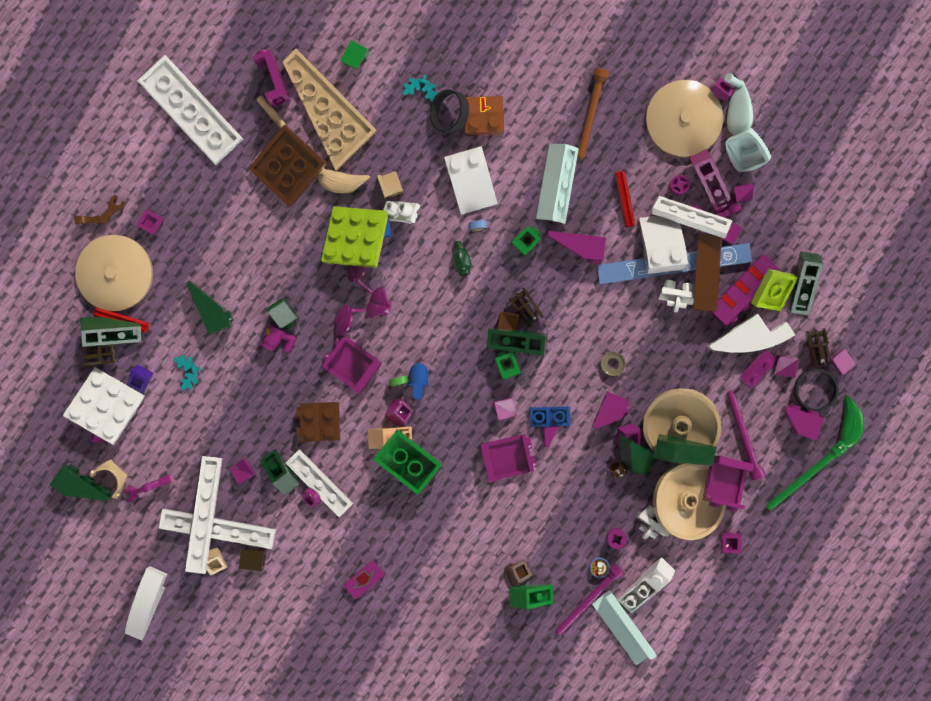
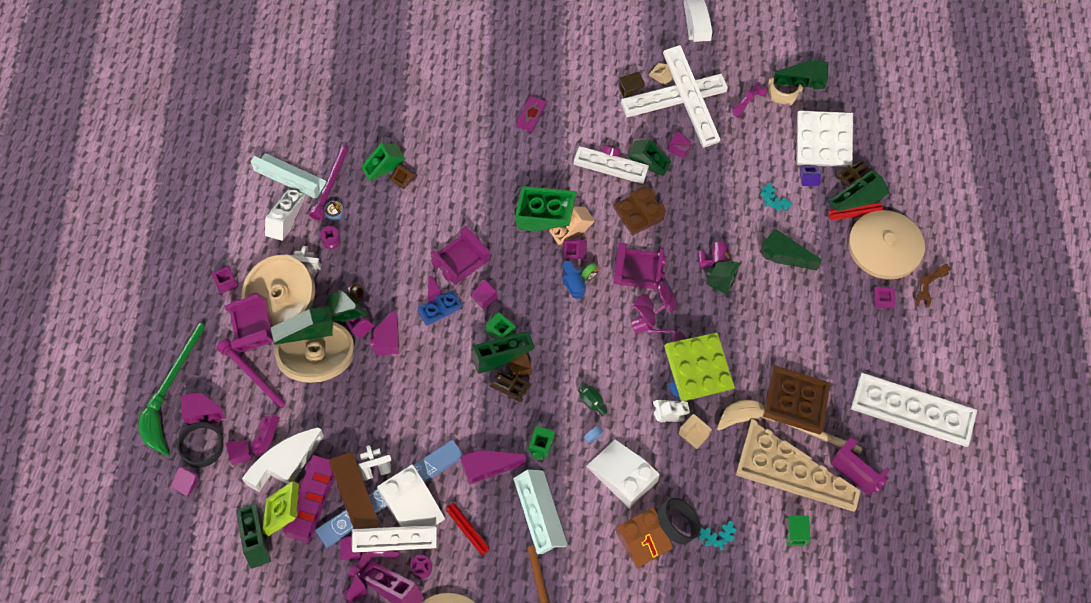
camera: 150 degrees right, 25 degrees down
(604, 363) = (404, 369): dark tan piece -> none
(818, 350) = (215, 483): dark brown arm -> none

